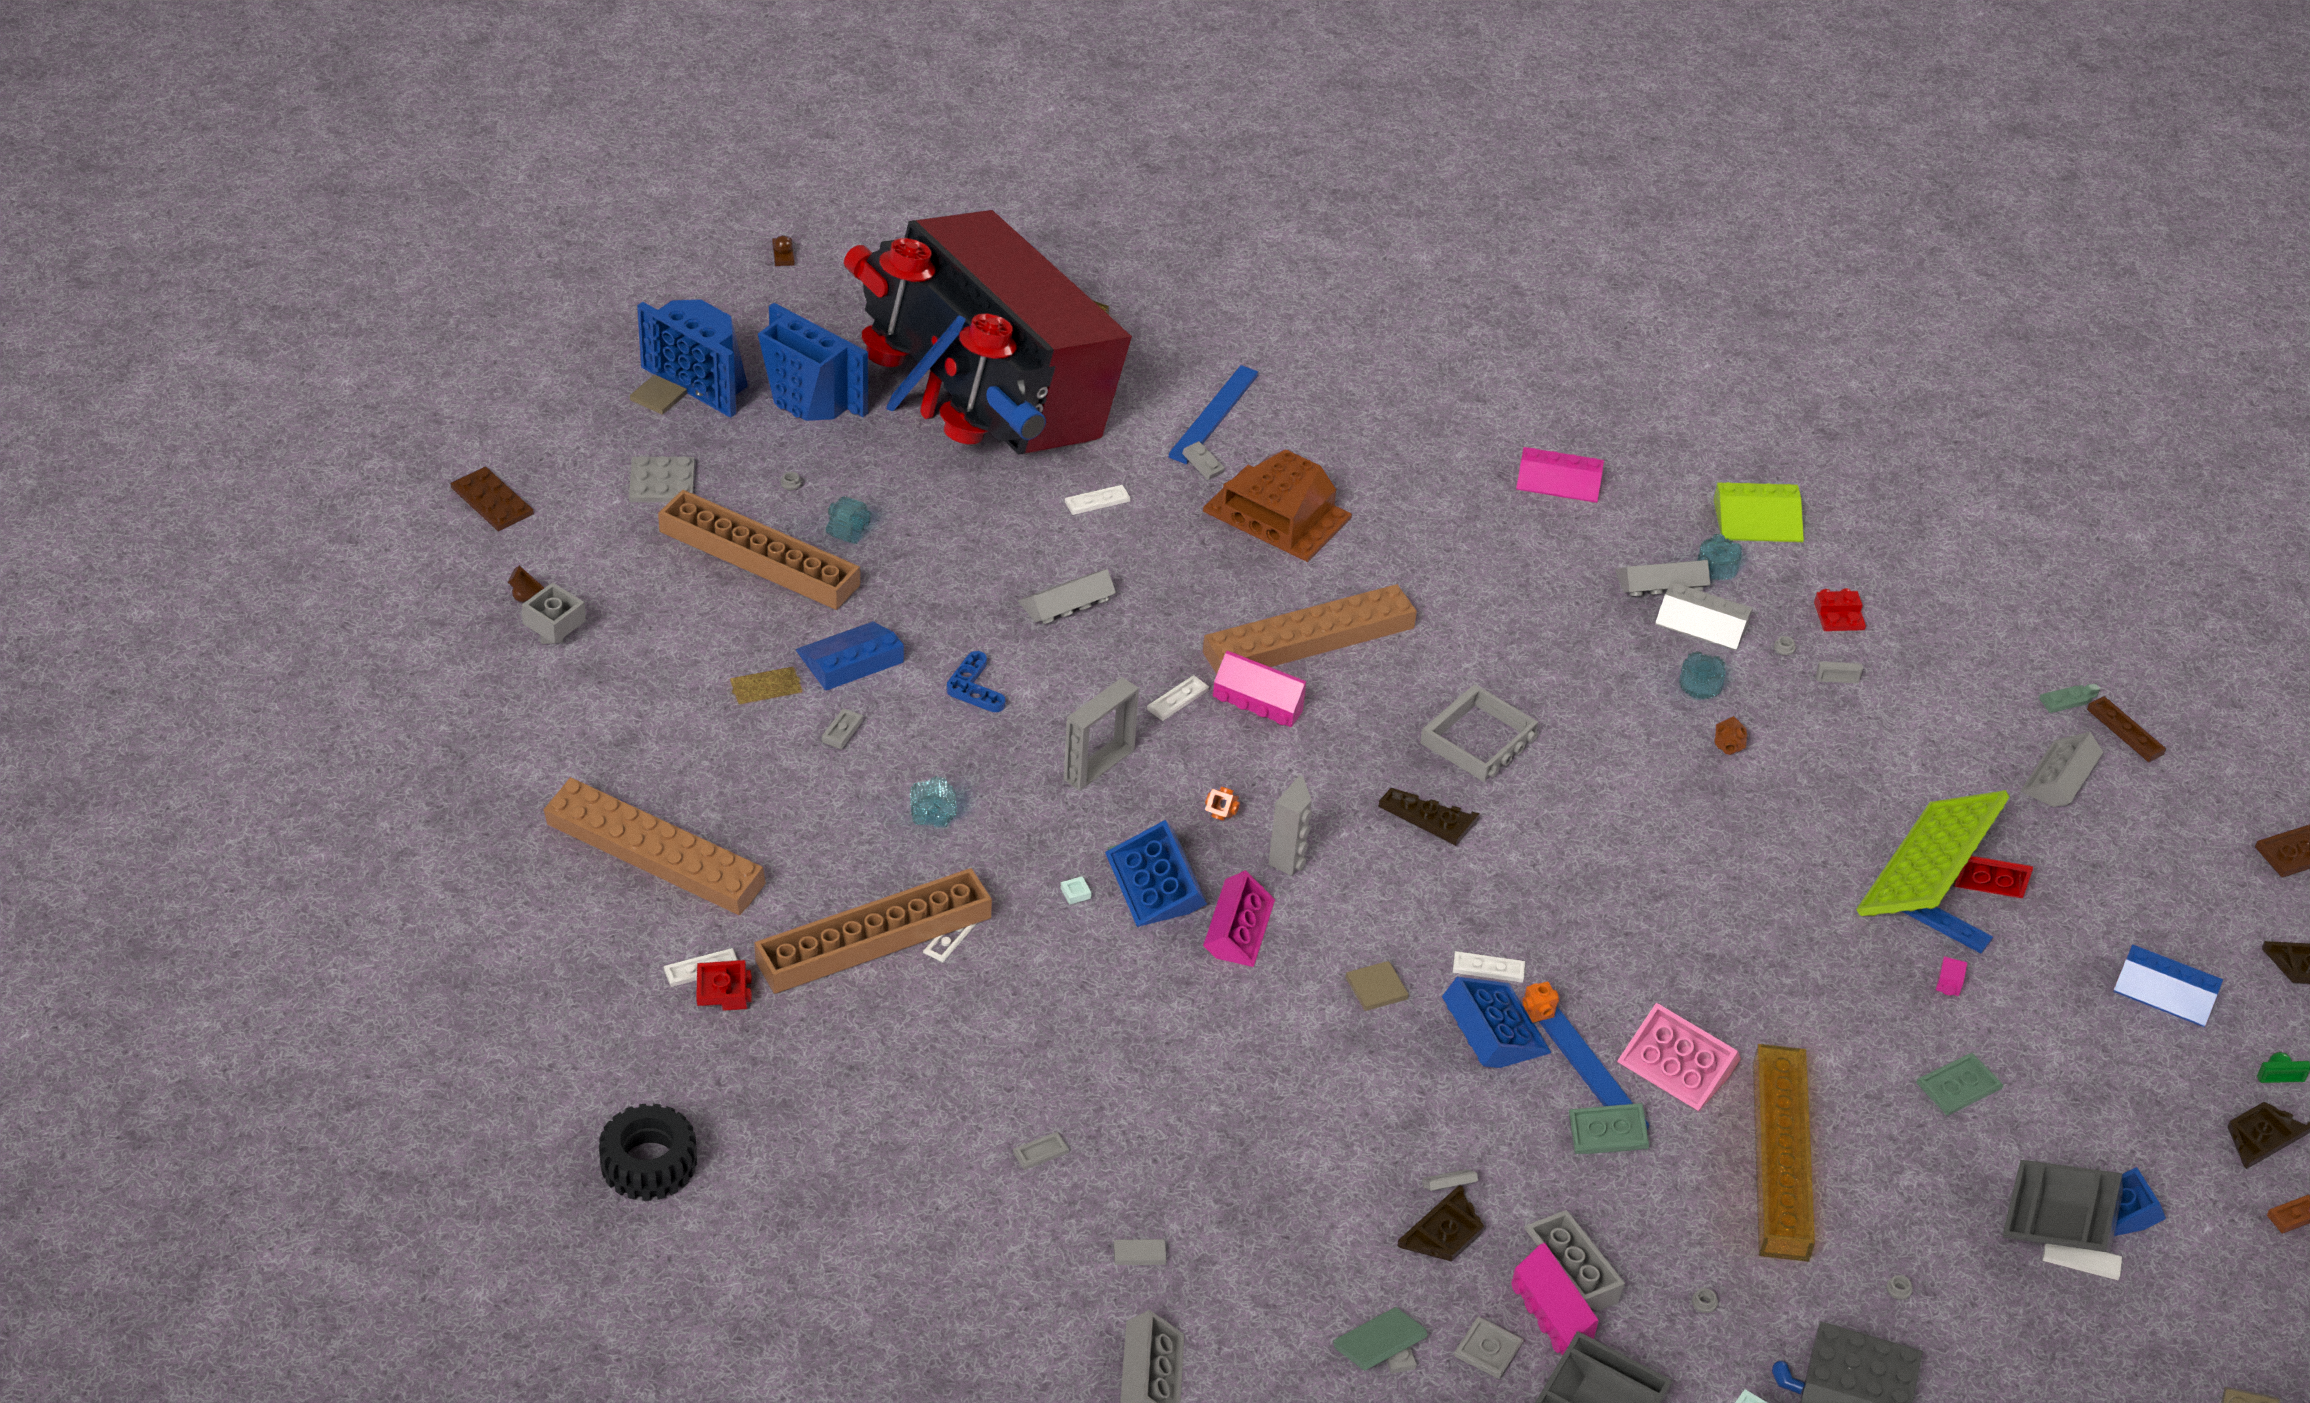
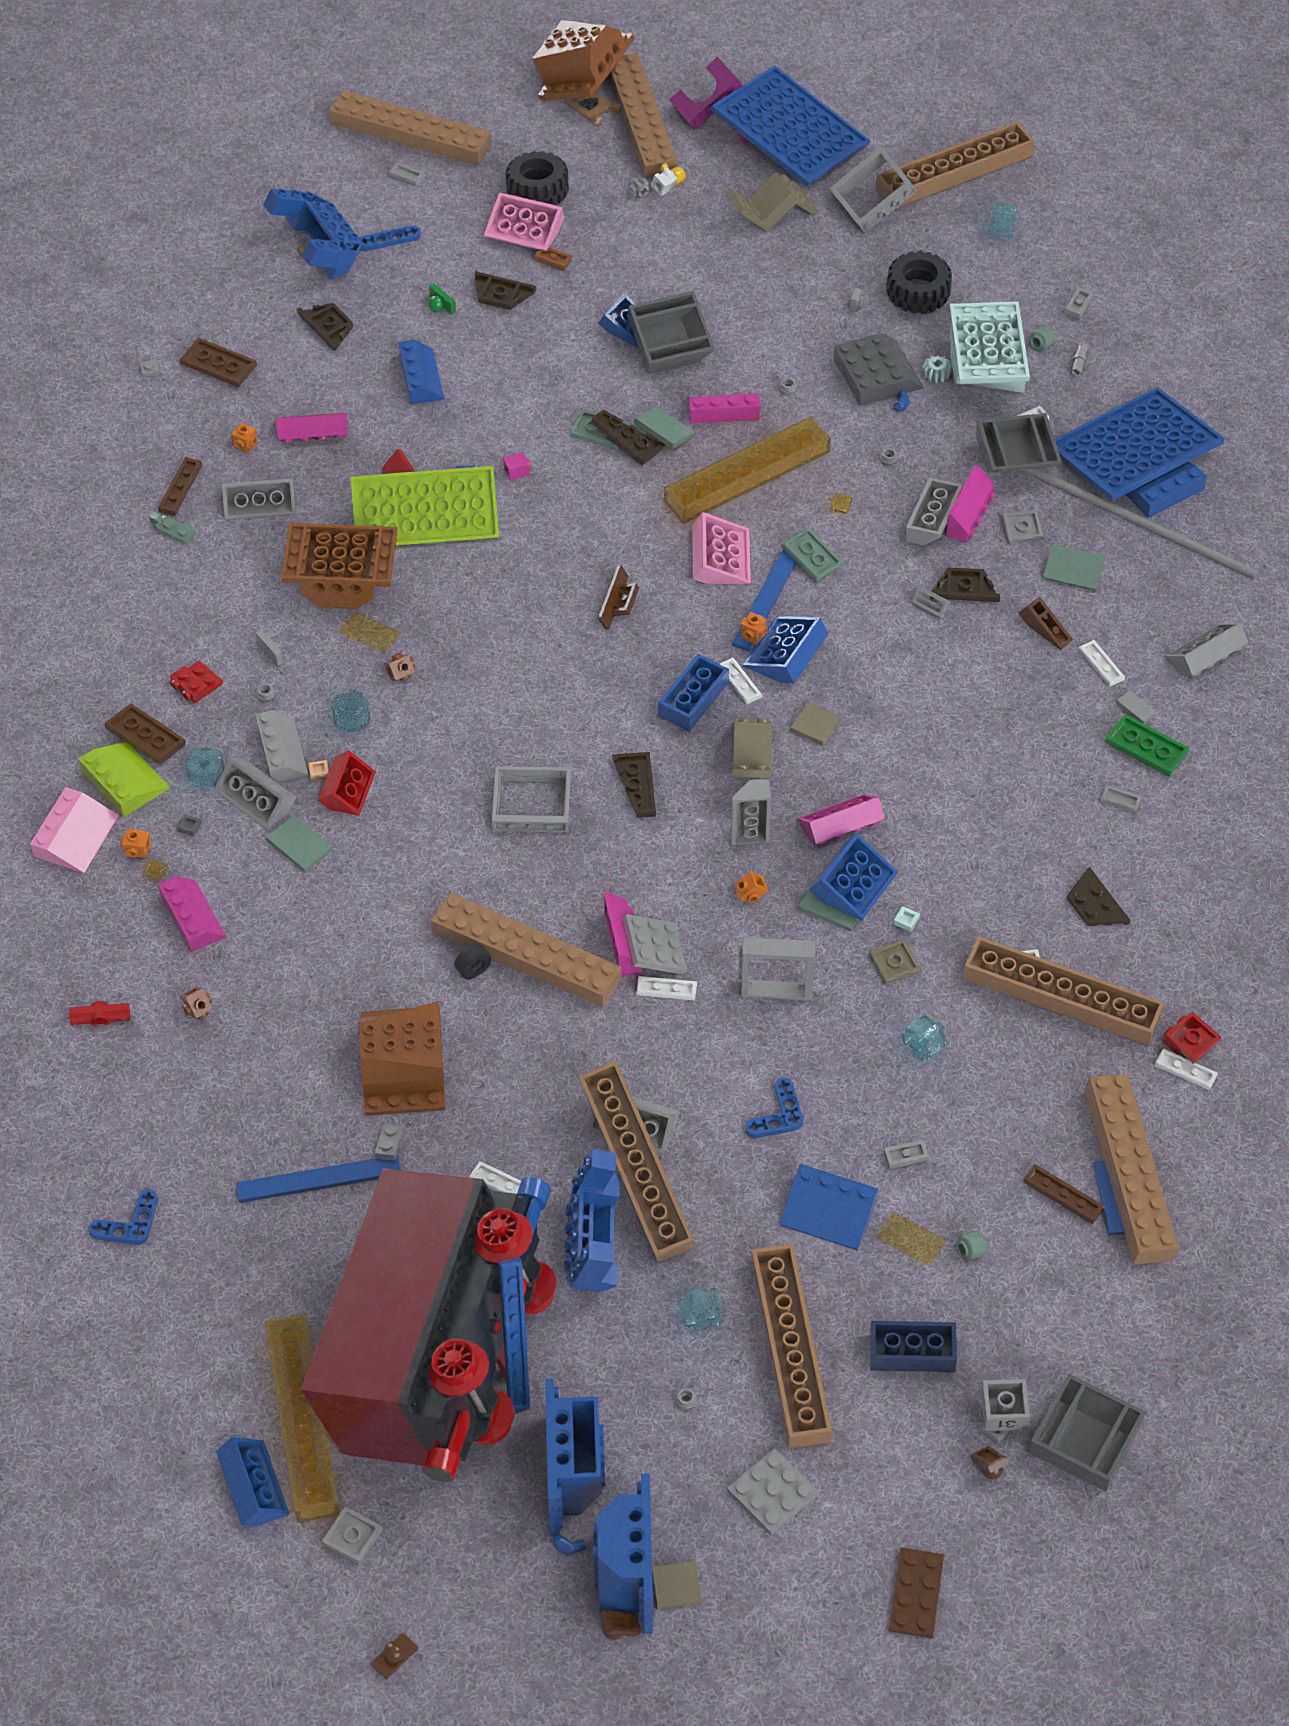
camera: 125 degrees left, 10 degrees up
(474, 646) = (1087, 1432): none -> dark grey slope
(670, 610) = (913, 1346): none -> dark blue brick
(687, 795) = (1063, 1194): none -> reddish brown plate
(712, 706) = (972, 1245): none -> sand green head
(753, 364) = (566, 1546): none -> blue arm
(945, 1038) = (1095, 902): none -> dark brown wing
(1000, 504) = (591, 1224): none -> blue wedge
(1015, 549) = (637, 1162): none -> medium nougat brick
(1040, 855) = (894, 961): none -> dark tan tile
(1081, 1219) = (1147, 745): none -> green plate
(1226, 702) = (654, 944): none -> light grey plate
(1227, 1269) = (1101, 663): none -> white tile
(1272, 309) = (130, 1228): none -> blue beam
(1327, 1252) = (1044, 622): none -> reddish brown slope
(1329, 587) = (472, 961): none -> black tyre
(1379, 895) = (752, 748): none -> dark tan bracket
(1456, 428) = (196, 1002): none -> brick
(1499, 910) = (693, 692): none -> blue brick
(1503, 383) = (99, 1013): none -> red piece
(1577, 576) = (299, 843): none -> sand green tile
(1614, 632) = (347, 784): none -> red slope
(1631, 485) = (155, 870): none -> clear yellow plate
(1654, 631) = (318, 770): none -> light nougat tile
(1664, 527) = (189, 825): none -> dark grey tile
(1666, 1206) = (841, 503): none -> clear yellow plate
(1668, 480) = (136, 843): none -> orange brick
(1686, 941) = (619, 598): none -> reddish brown bracket
(1721, 454) = (73, 831): none -> bright pink slope
(1799, 548) = (145, 733): none -> reddish brown plate
(1803, 754) = (370, 632): none -> clear yellow piece
(1905, 745) = (339, 562): none -> dark orange wedge
(1911, 1204) = (724, 408): none -> dark pink slope
(1914, 1131) = (664, 427): none -> sand green tile
(1917, 1087) = (635, 443): none -> dark brown wing
(2145, 861) = (312, 426): none -> dark pink slope
(2162, 801) = (244, 437): none -> orange brick

